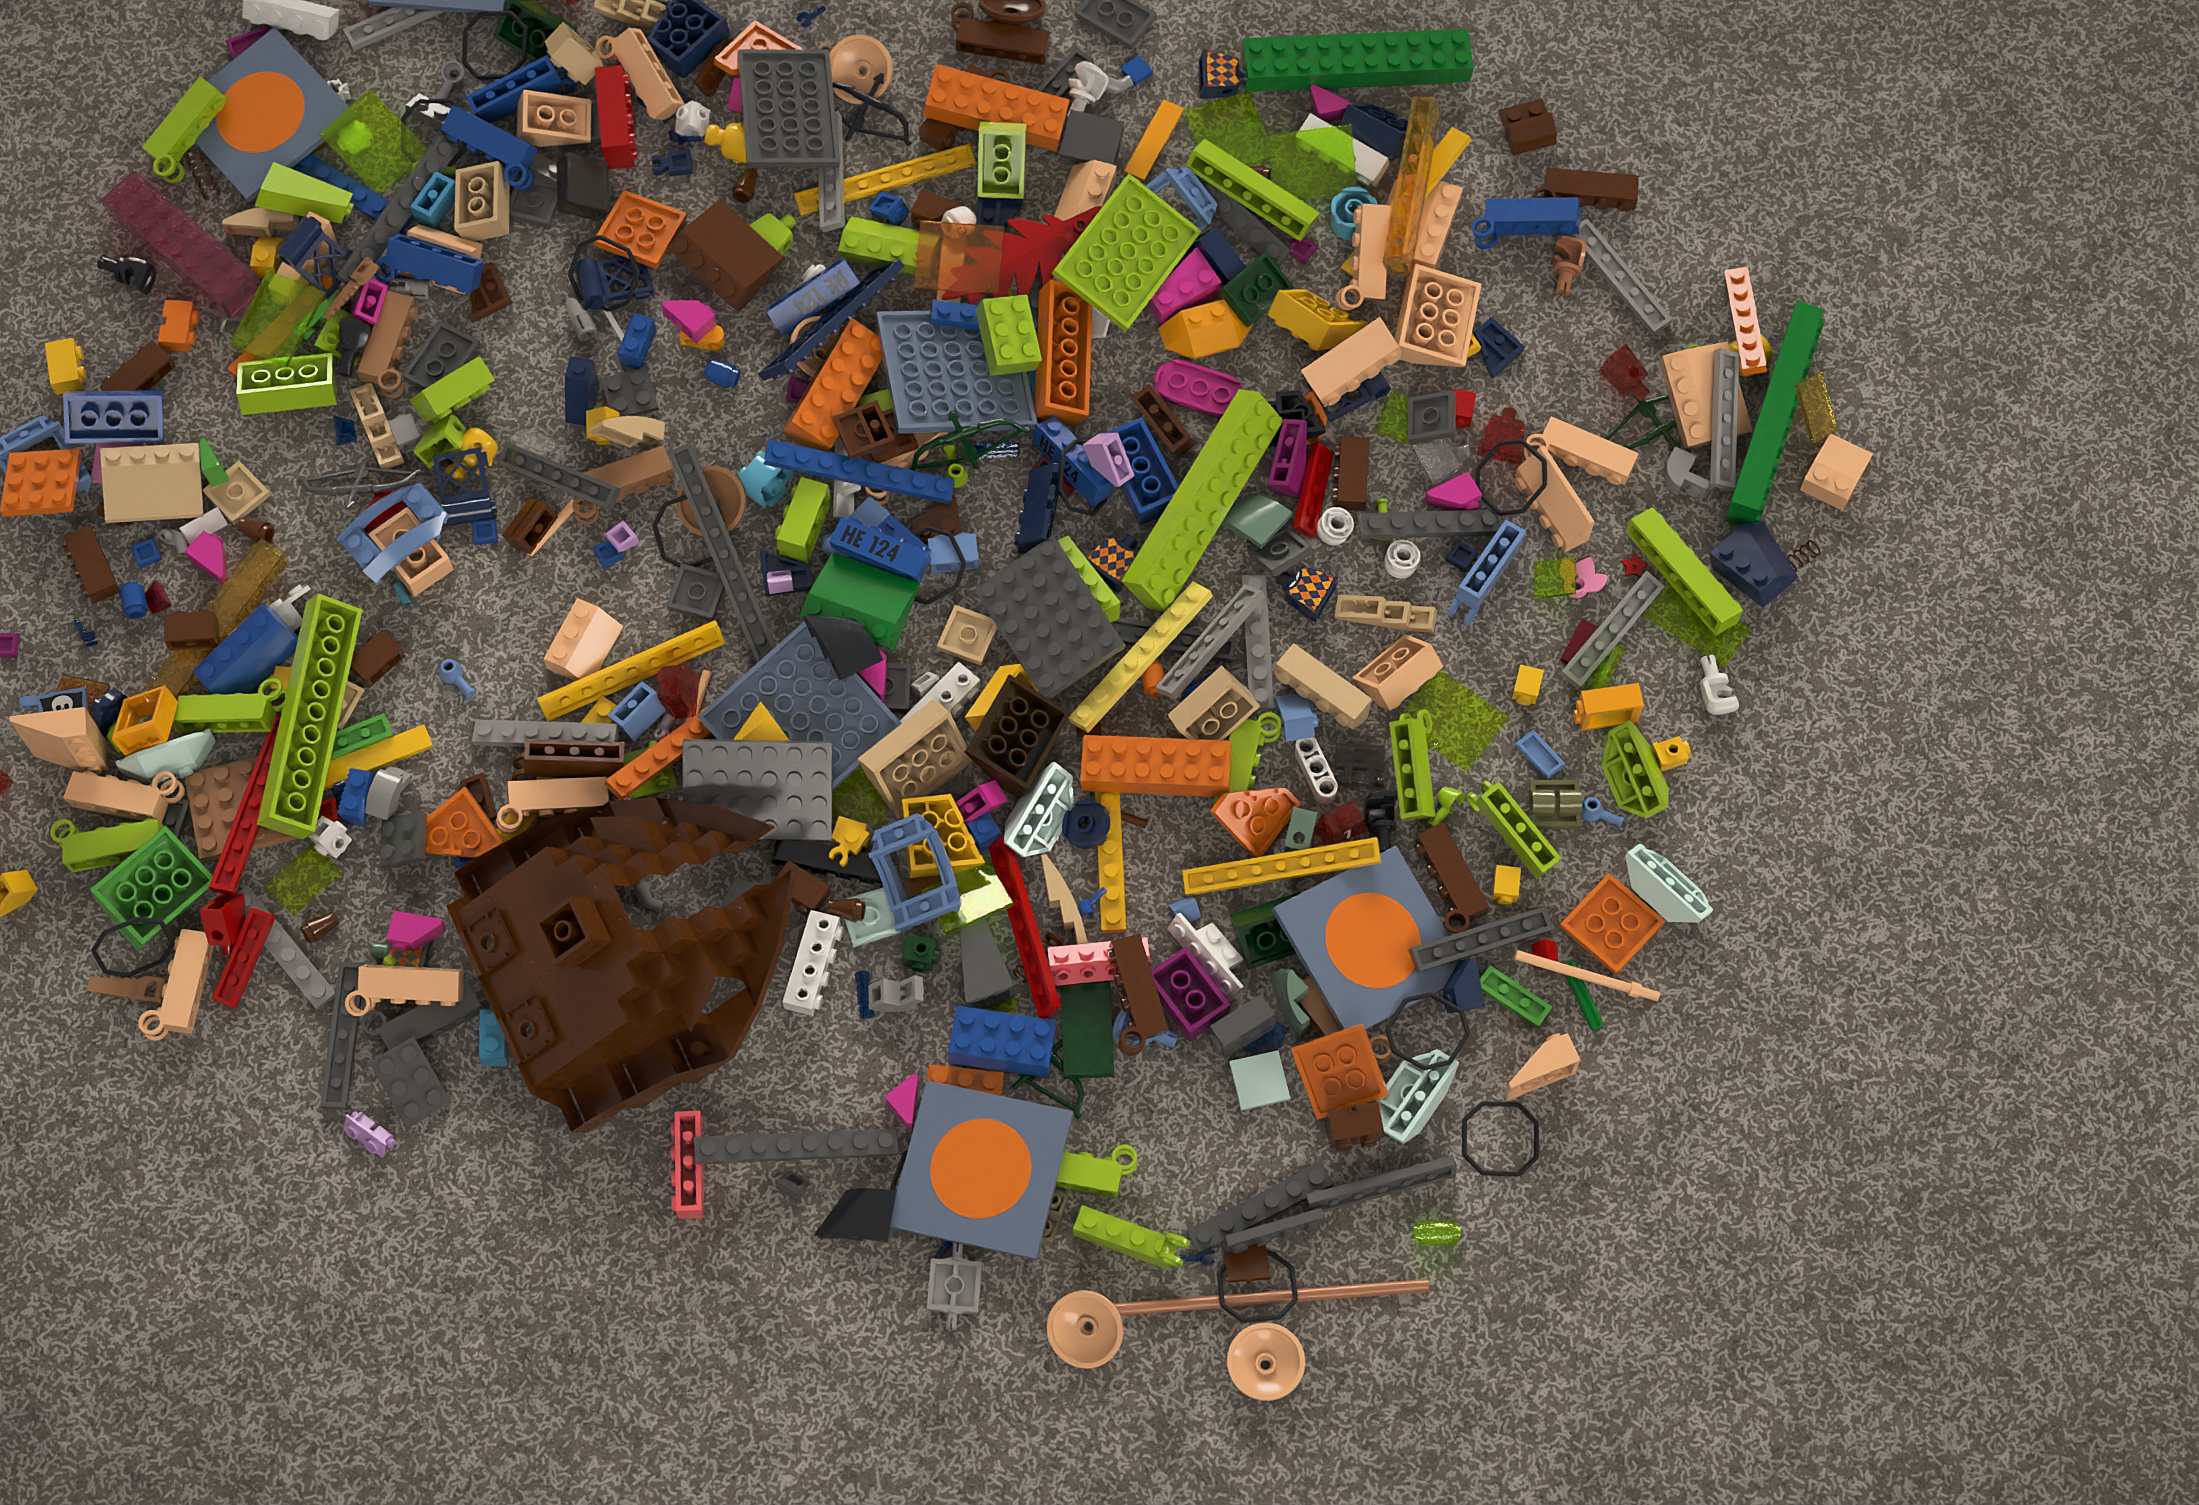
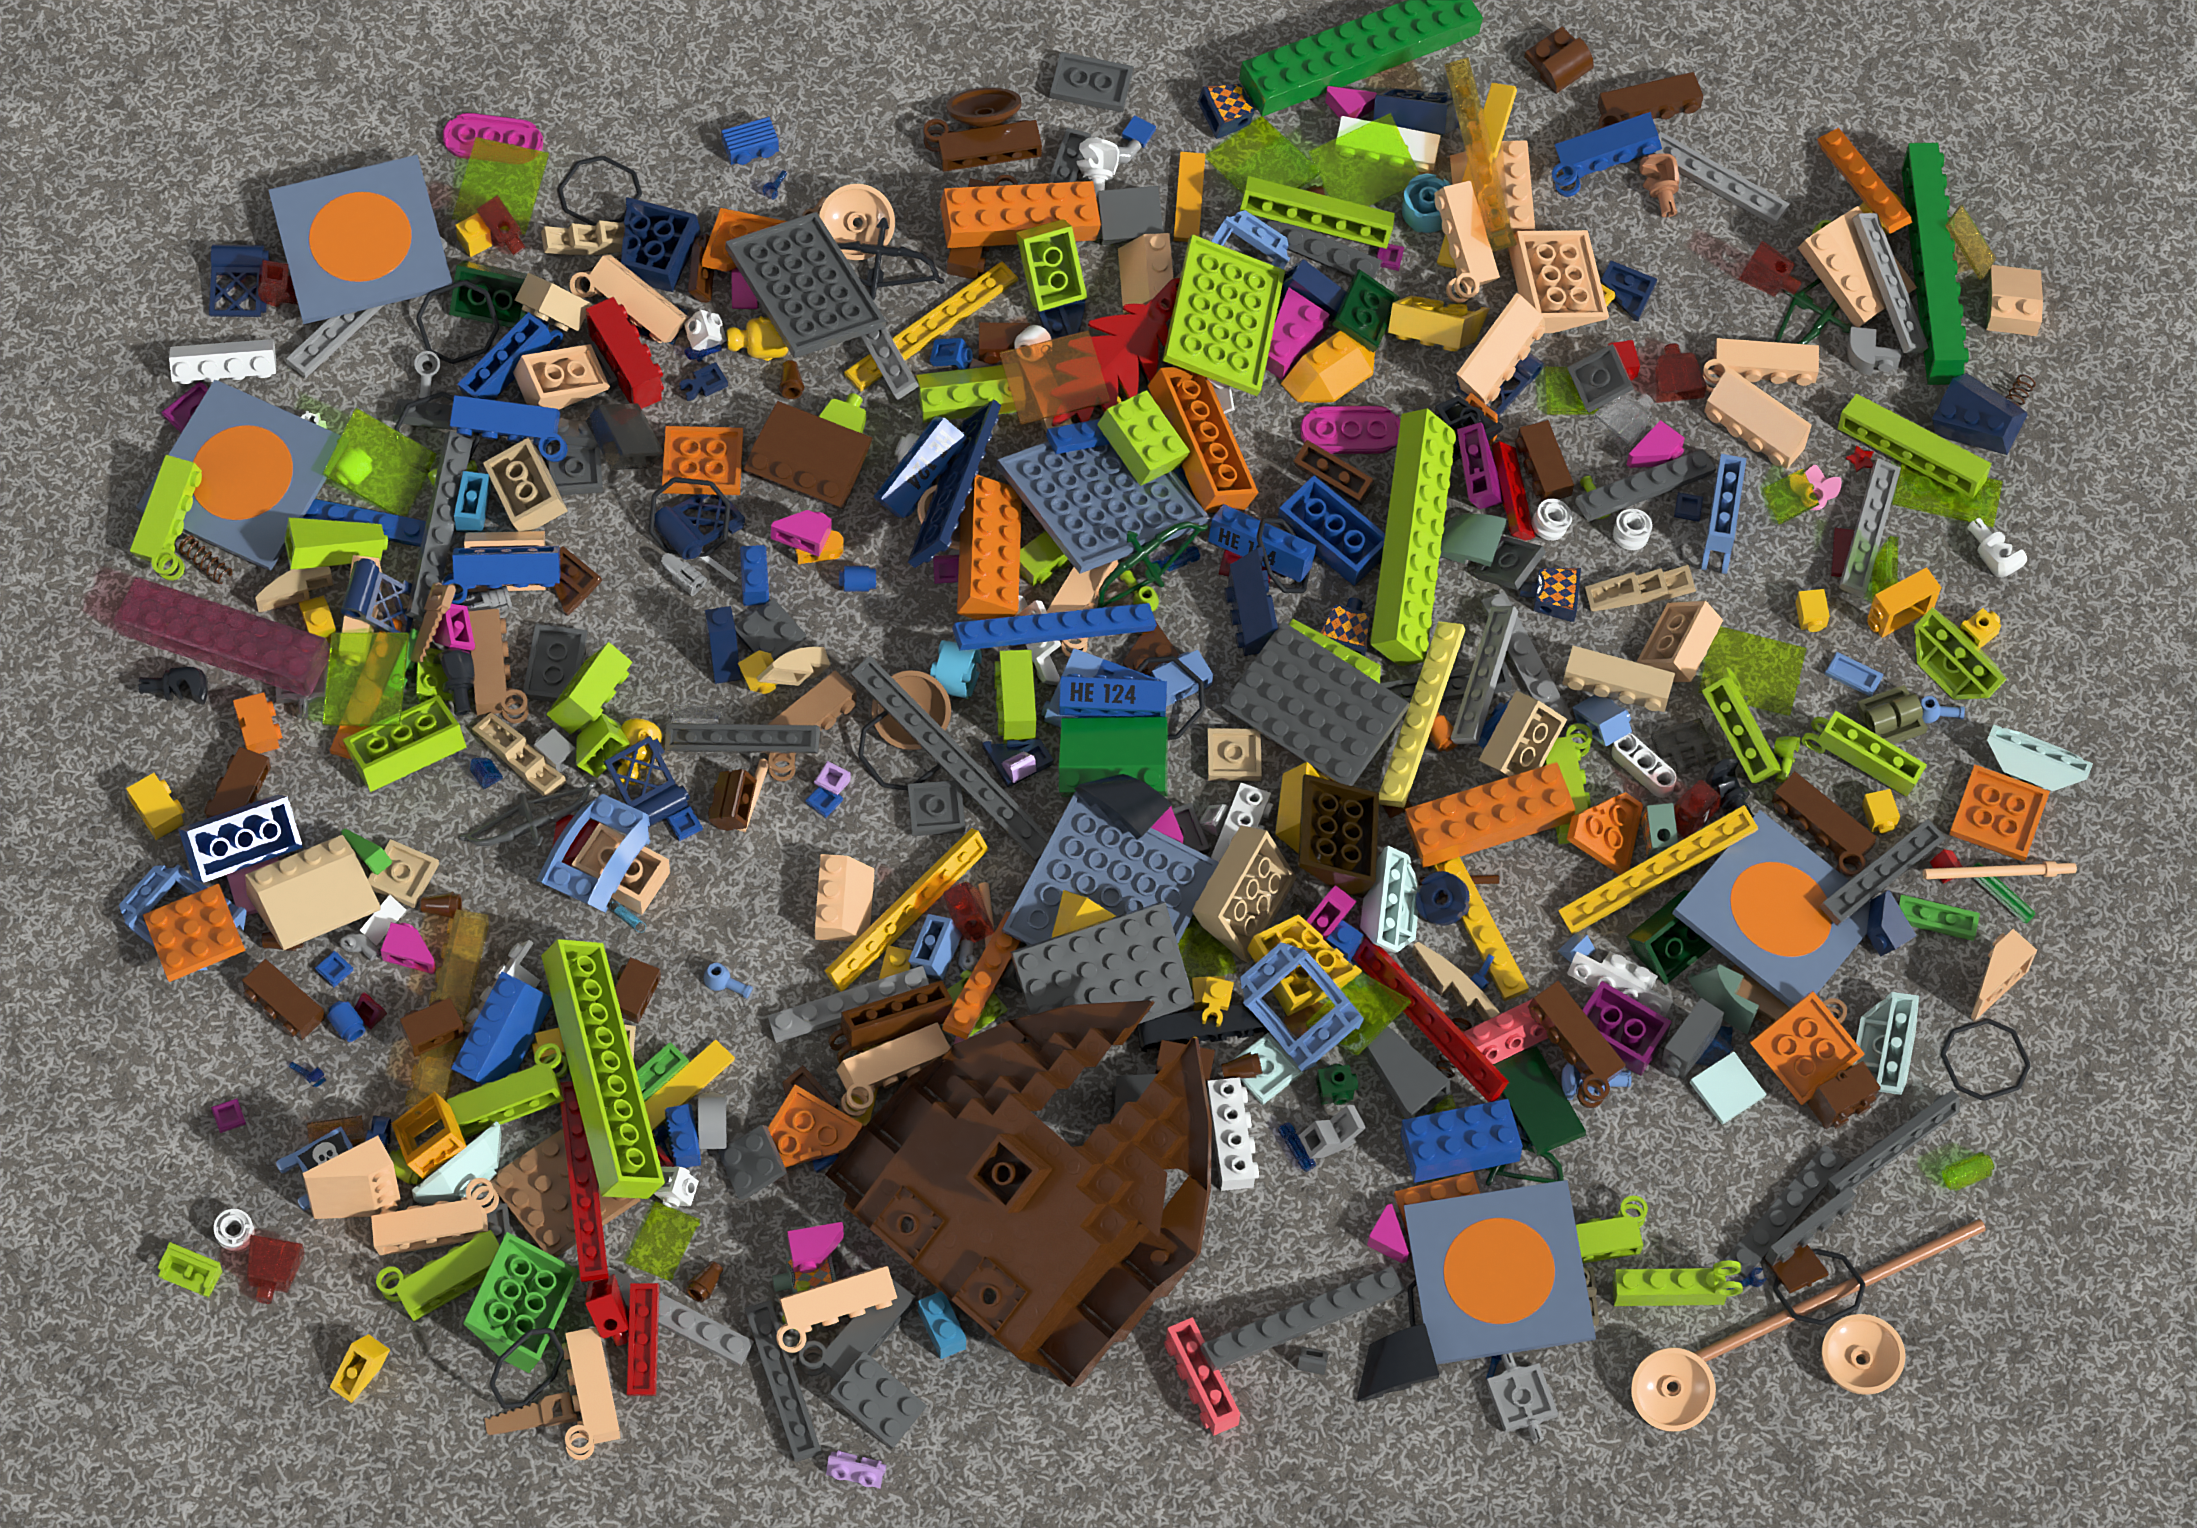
camera: 25 degrees left, 5 degrees down
(872, 432) = (1053, 582): reddish brown bracket -> none
(1109, 458) = (1304, 525): lavender slope -> none
(1409, 1059) = (1879, 944): black piece -> none
(1537, 493) = (1740, 419): black piece -> none

